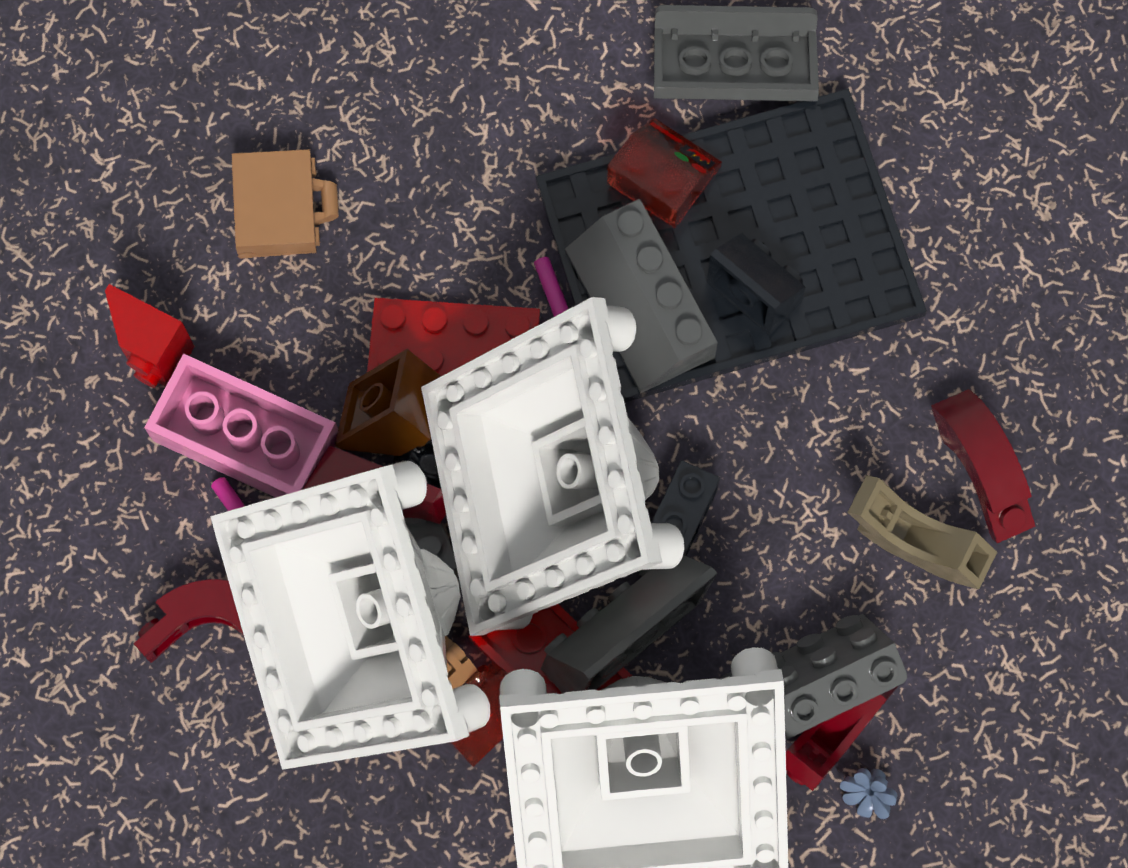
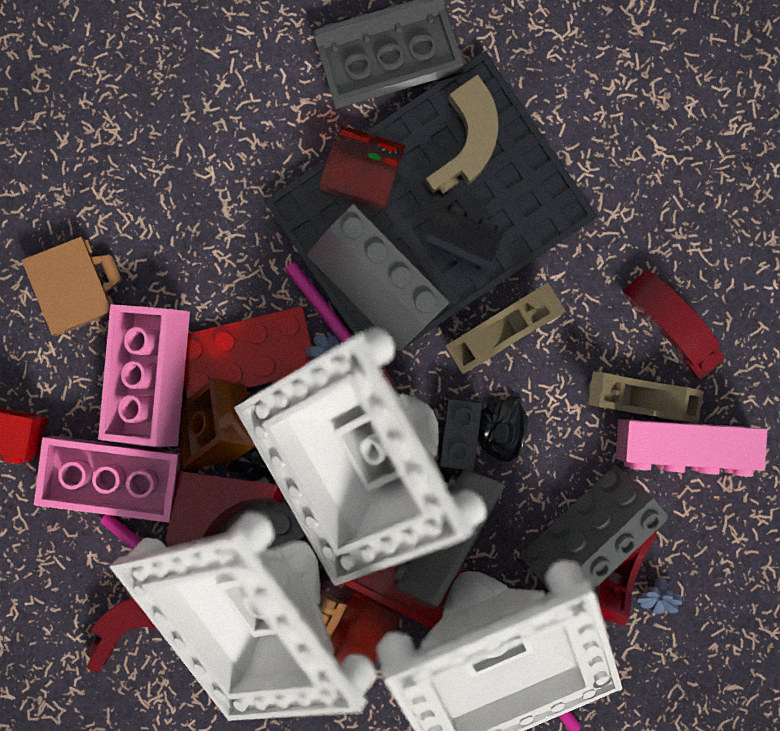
camera: 20 degrees left, 15 degrees up
(327, 323) = (144, 375): none -> bright pink brick
(736, 526) = (503, 428): none -> black hat
(777, 406) = (505, 328): none -> dark tan arch
(818, 148) = (480, 118): none -> dark tan arch
(961, 608) = (689, 444): none -> bright pink brick

